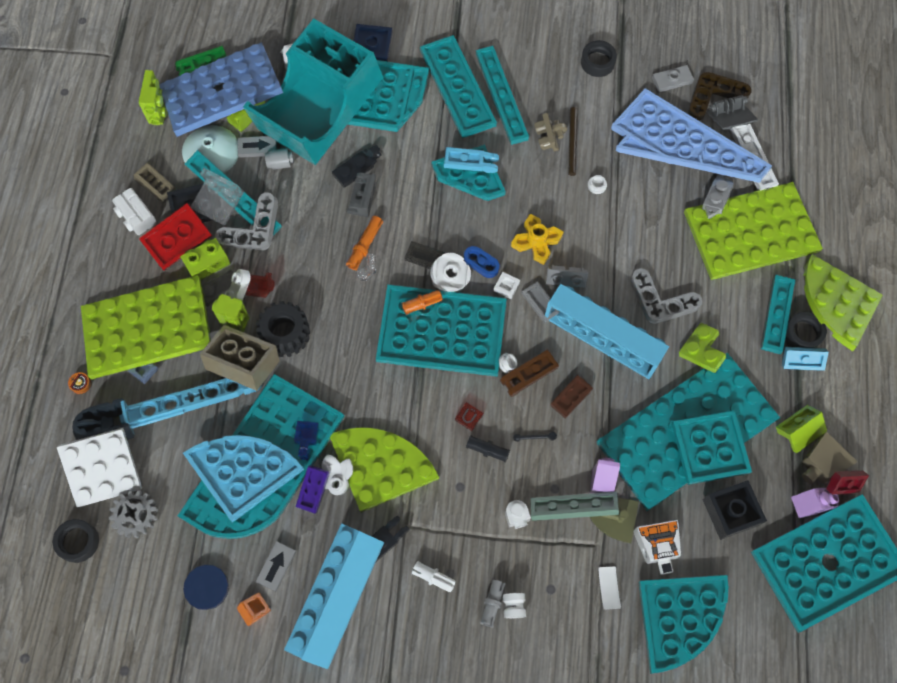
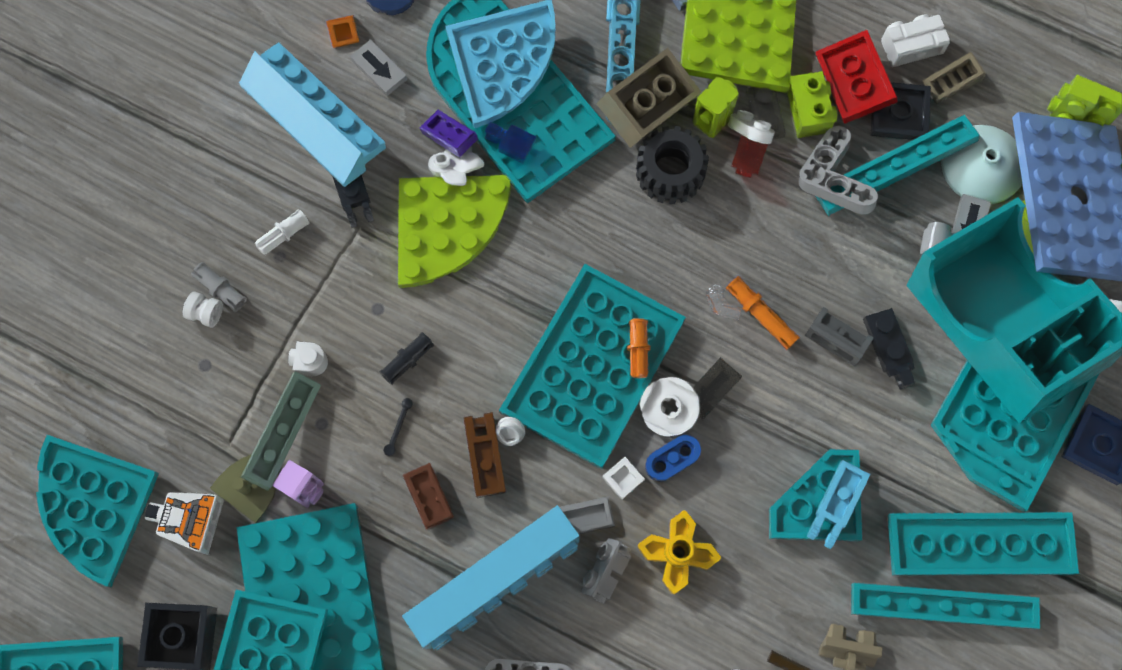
camera: 115 degrees right, 5 degrees up
(217, 197) = (895, 138): clear bracket -> none
(469, 416) = (460, 353): clear red tile -> none
(609, 588) = (170, 435): white sticker -> none

